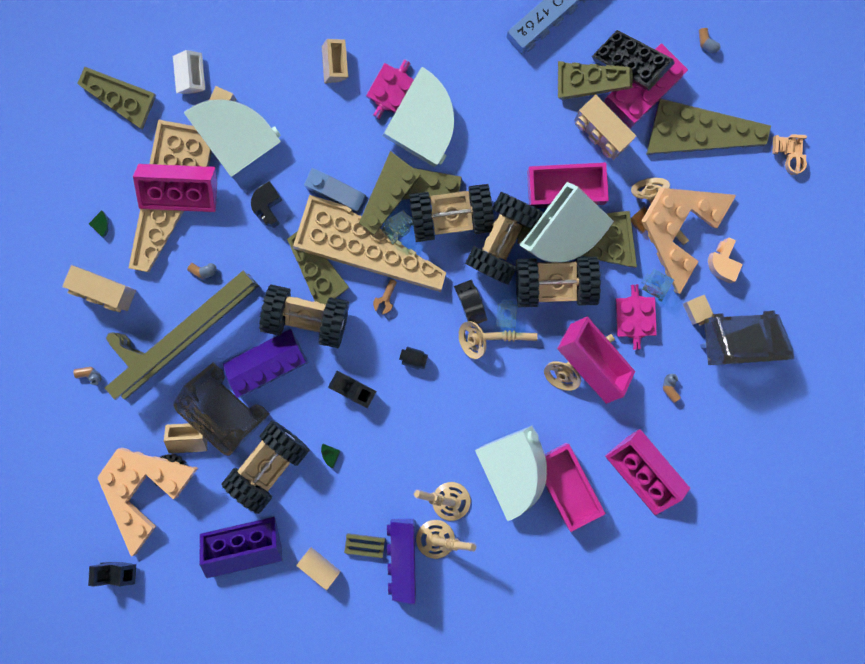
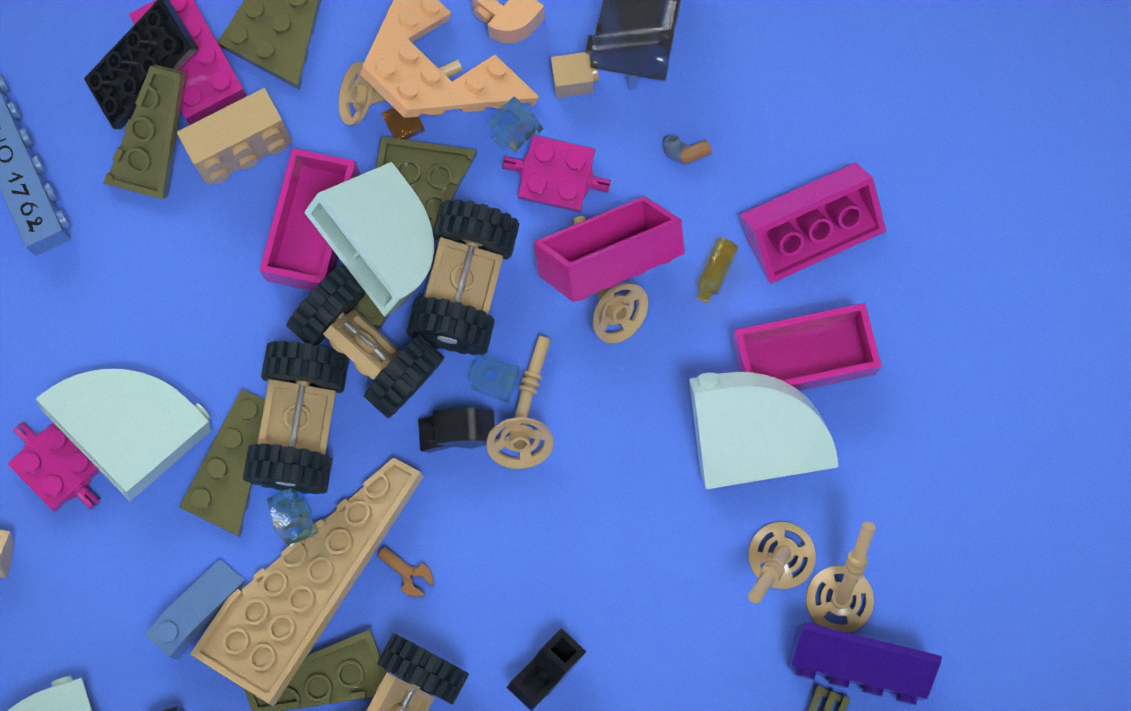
camera: 75 degrees left, 10 degrees down
(390, 189) = (226, 513): olive wing -> none
(413, 358) = (522, 551): black brick -> none
(604, 423) = (716, 268): none -> clear yellow cylinder

